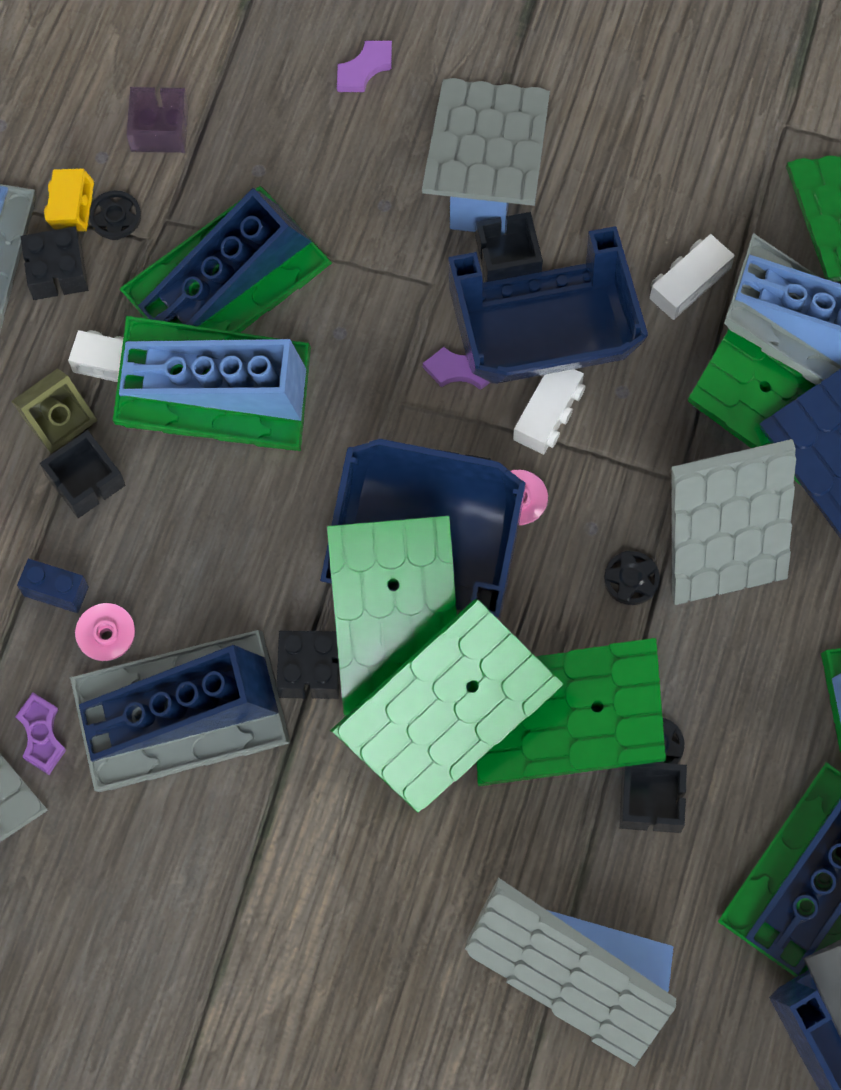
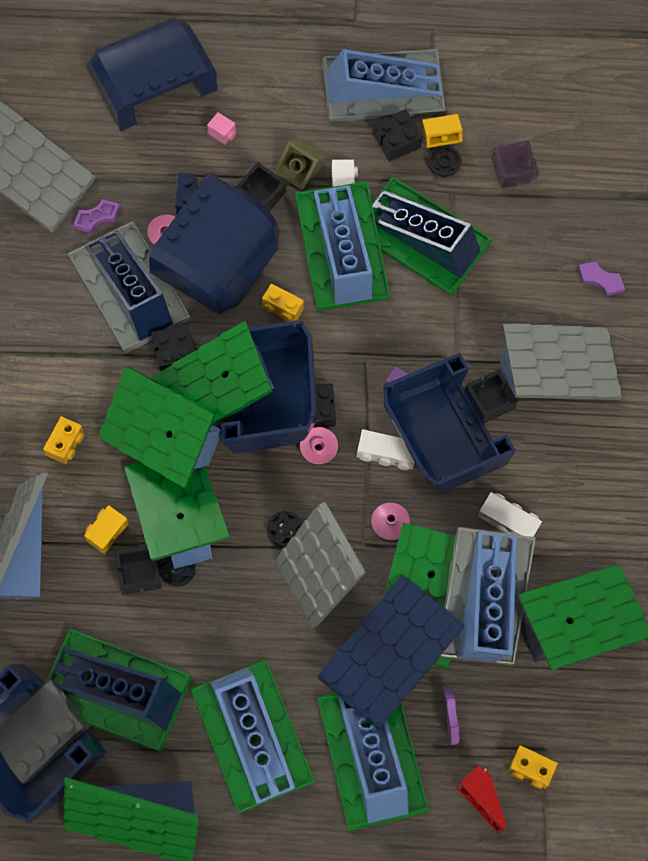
camera: 70 degrees right, 0 degrees up
(160, 558) = (216, 245): none -> dark blue slope
(280, 491) = (282, 303): none -> yellow brick
(413, 864) = (64, 440): none -> yellow brick
(575, 831) = (105, 529): none -> yellow brick
(653, 445) = (384, 528): none -> bright pink dish

